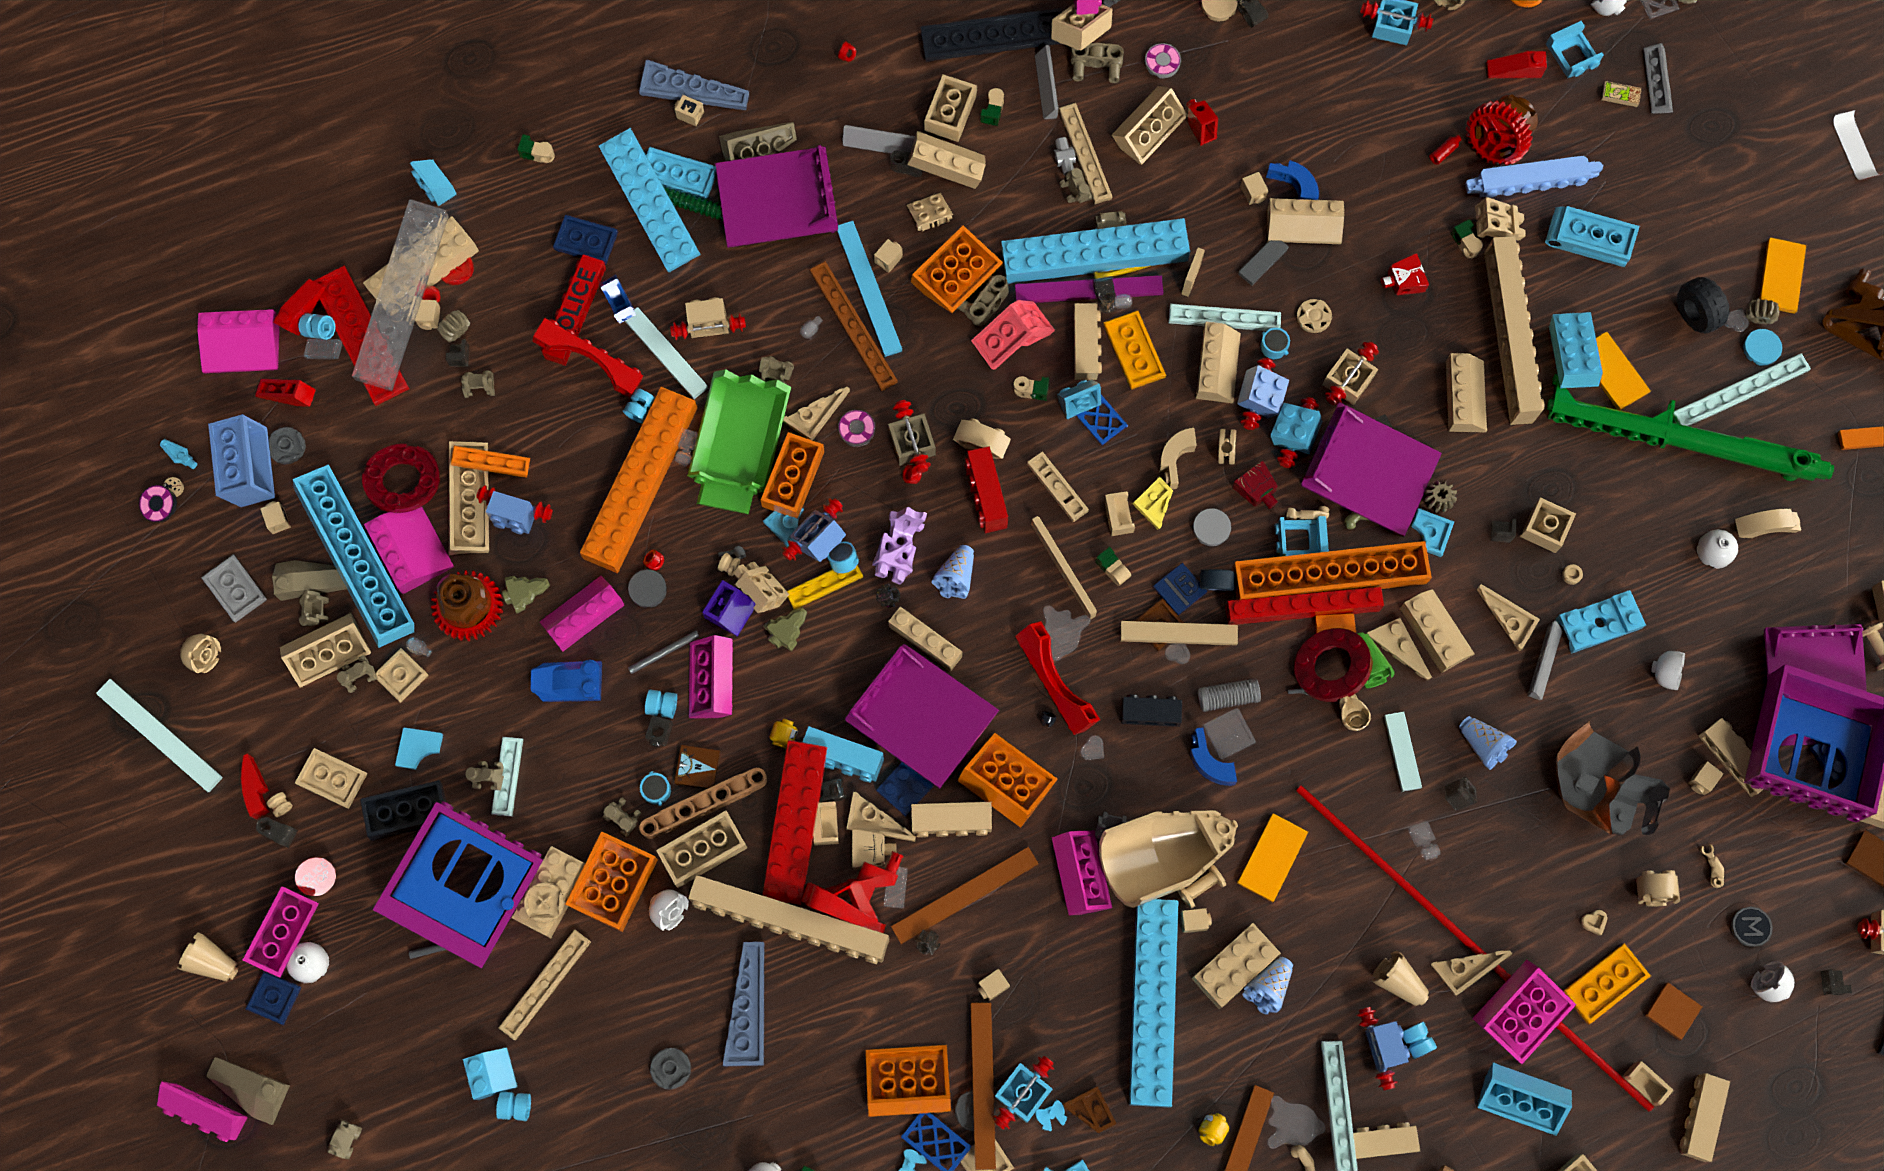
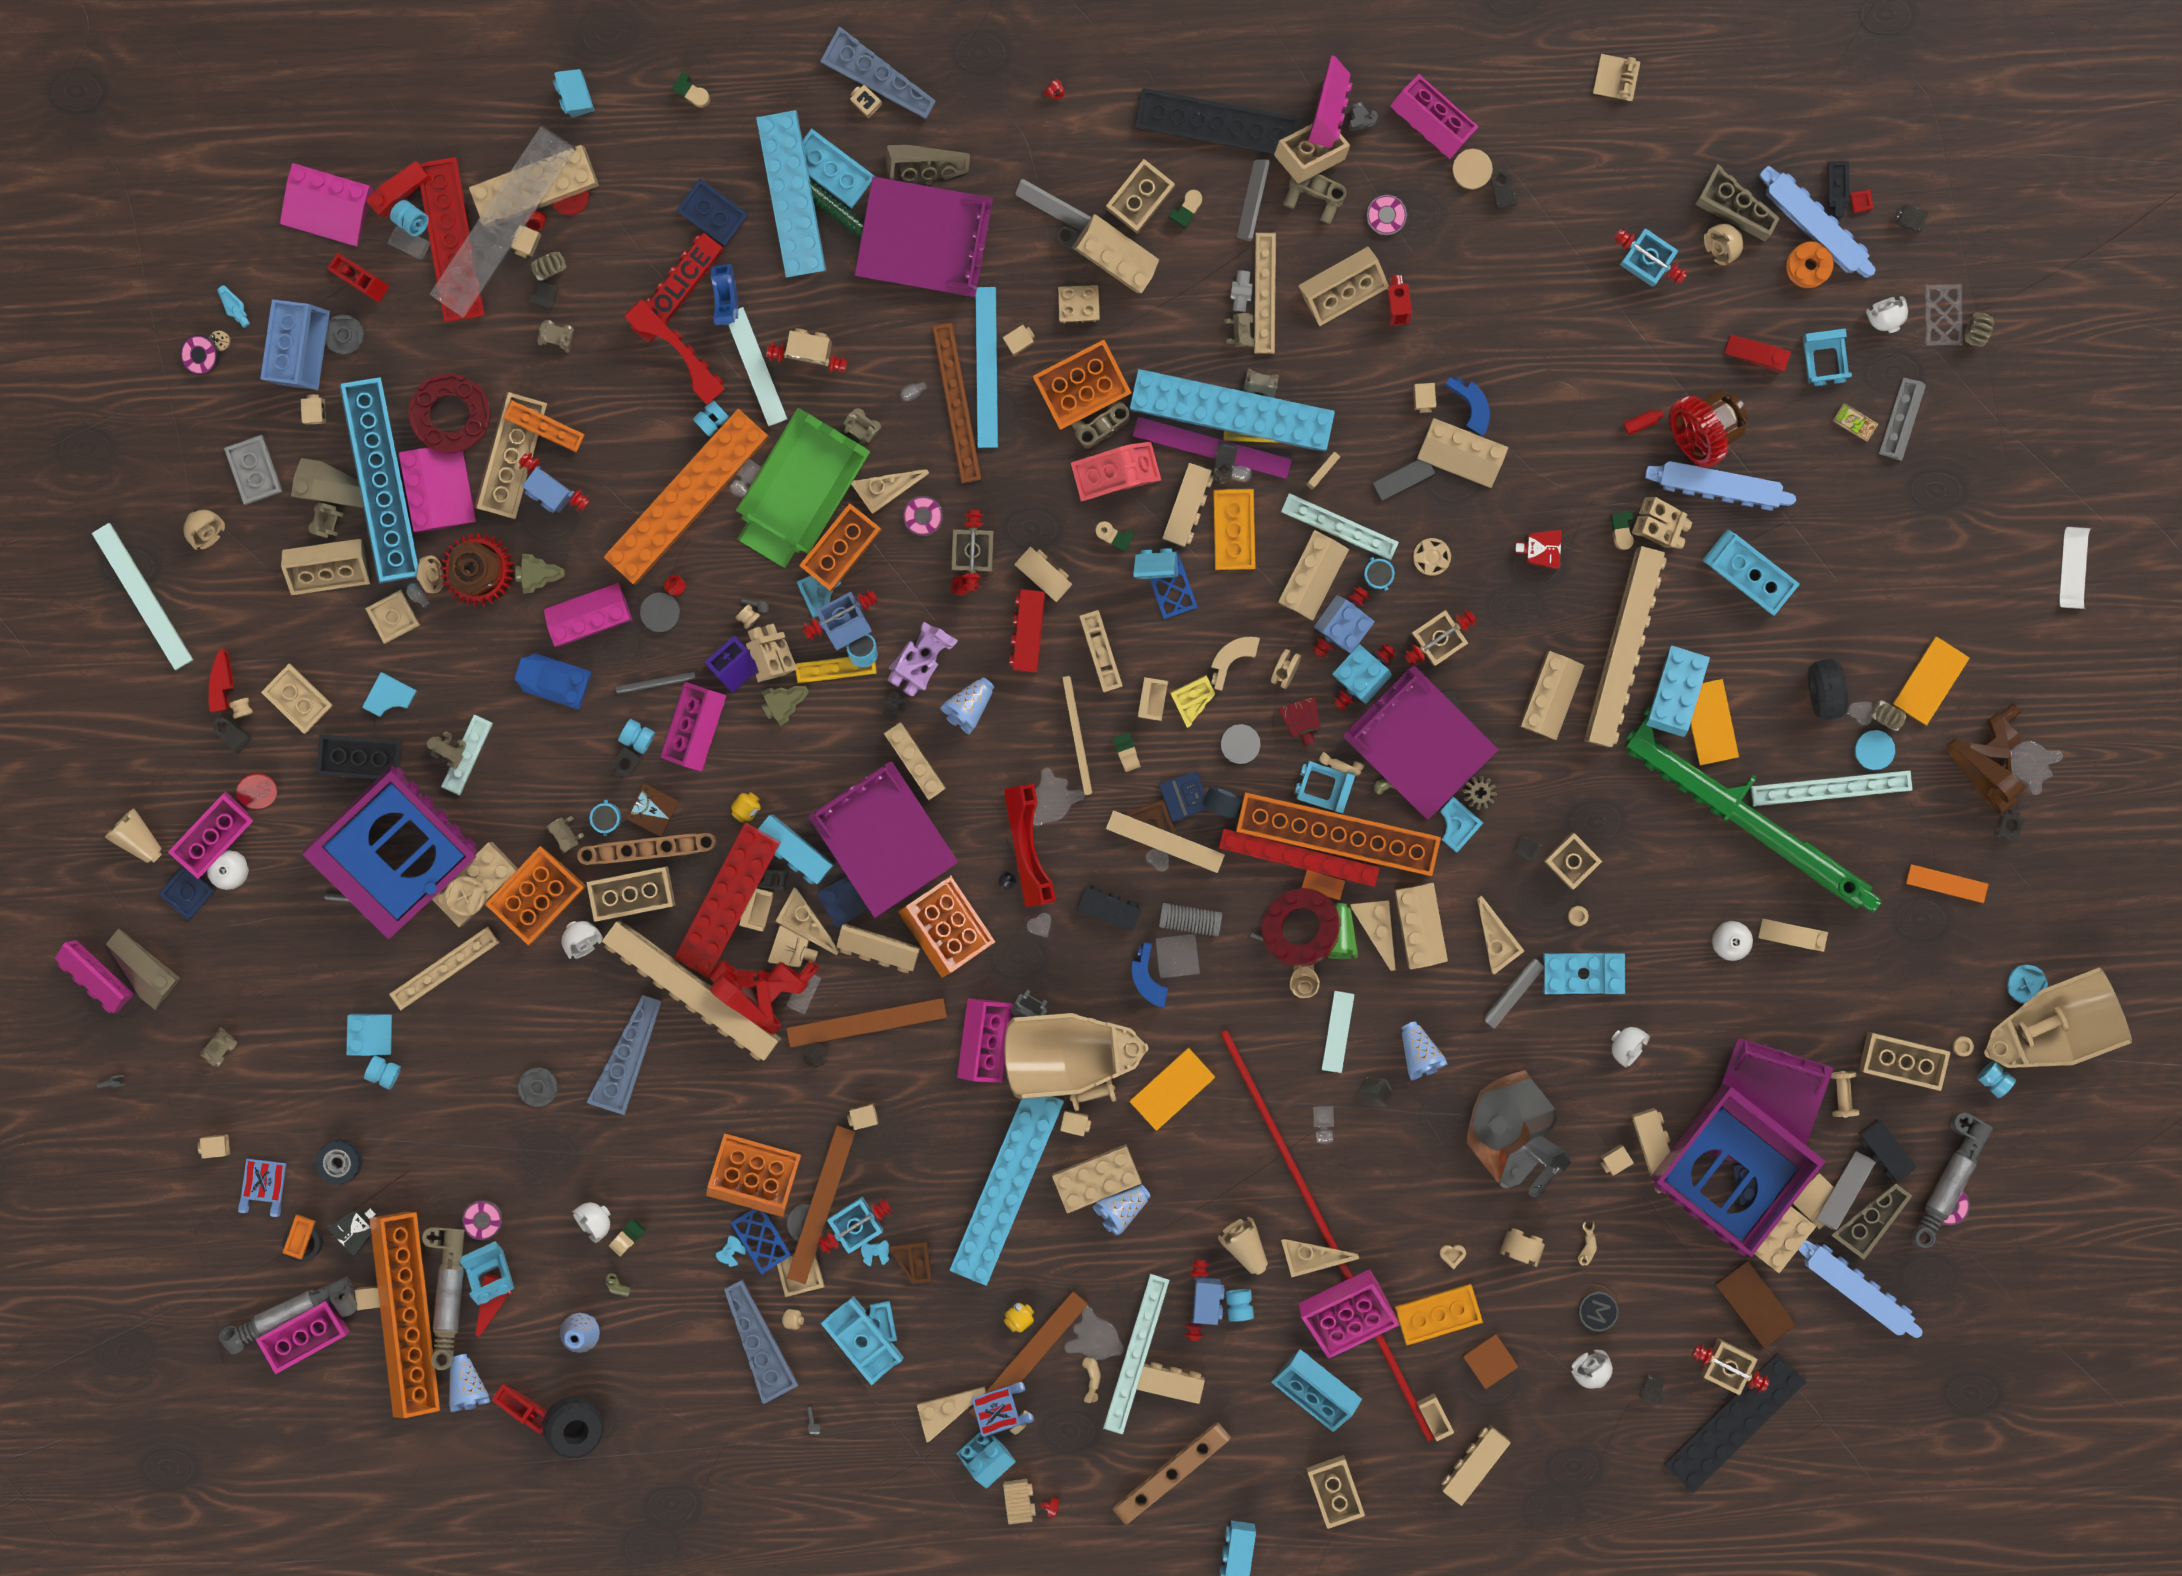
camera: 15 degrees right, 15 degrees up
(352, 673) = (344, 603): dark tan piece -> none
(424, 622) = (430, 574): none -> tan wheel

